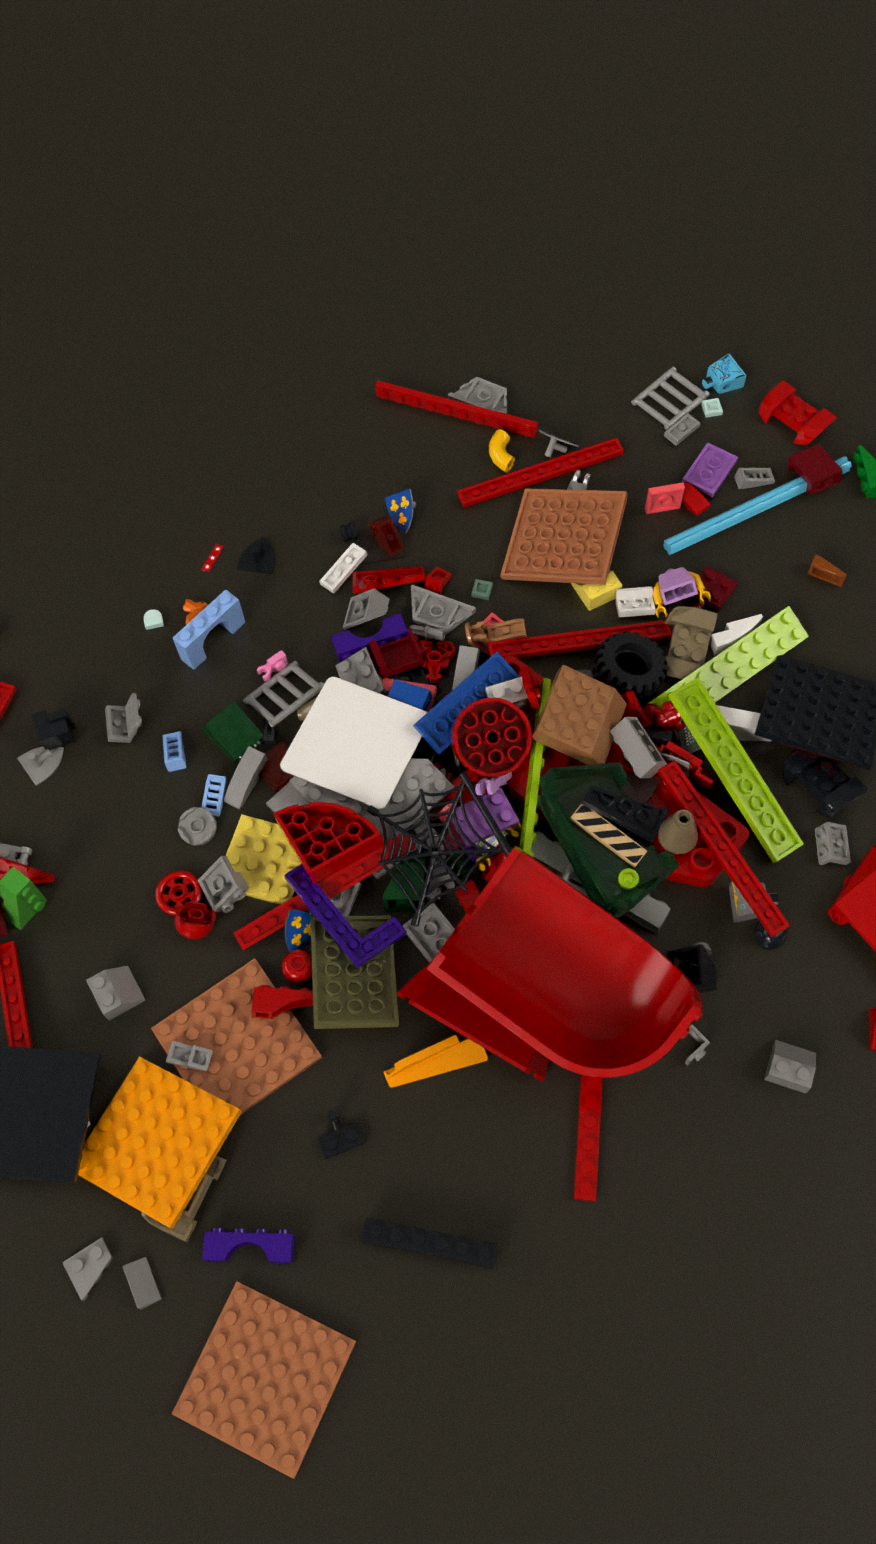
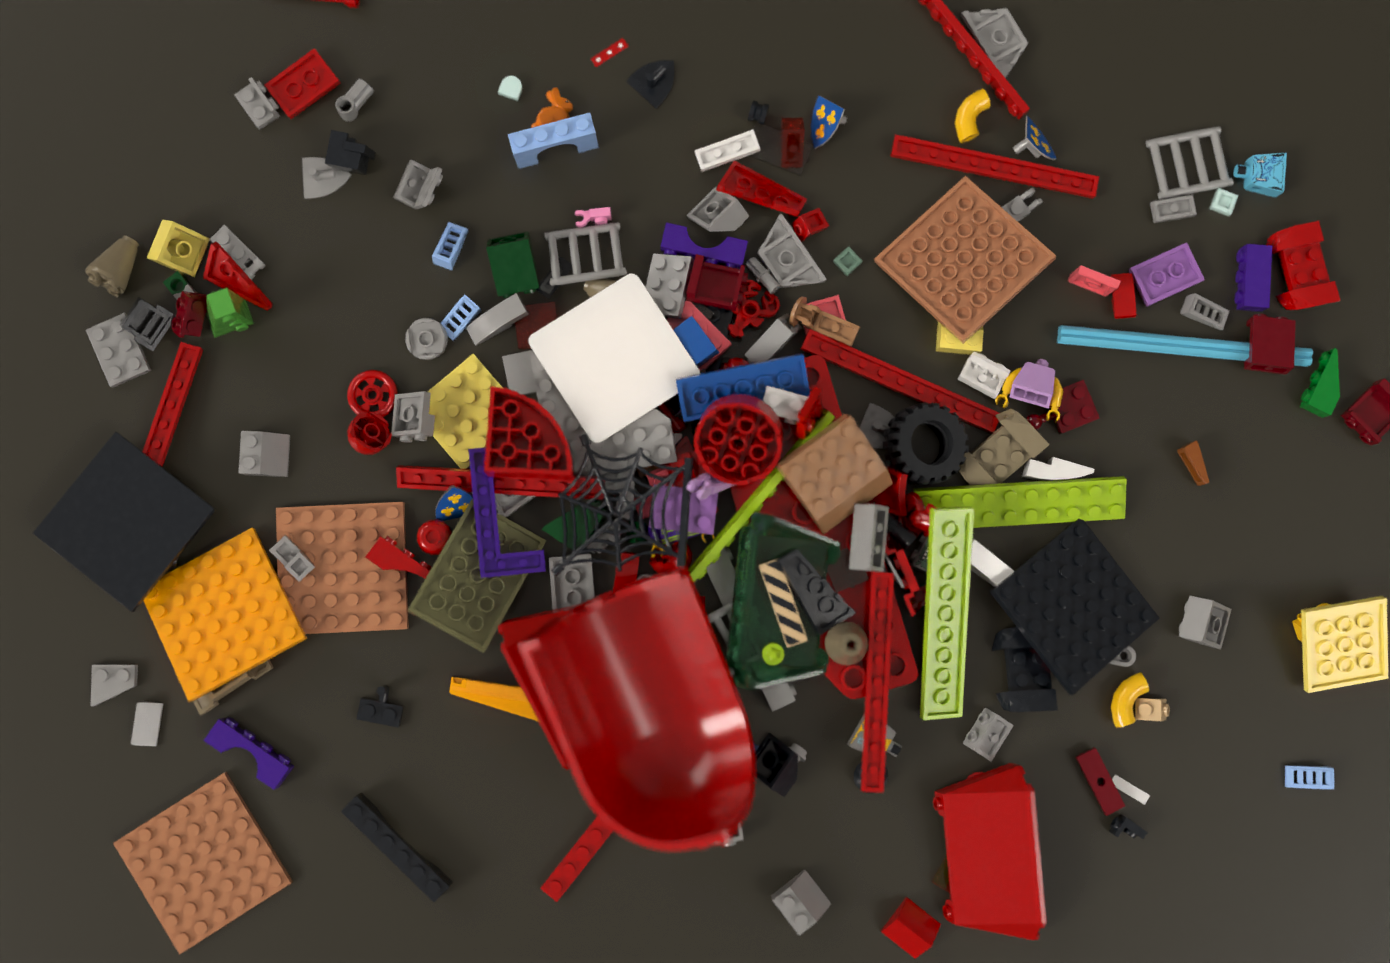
camera: 25 degrees right, 20 degrees up
(35, 692) = (355, 98): none -> light grey piece
(769, 437) = (1253, 277): none -> dark purple brick

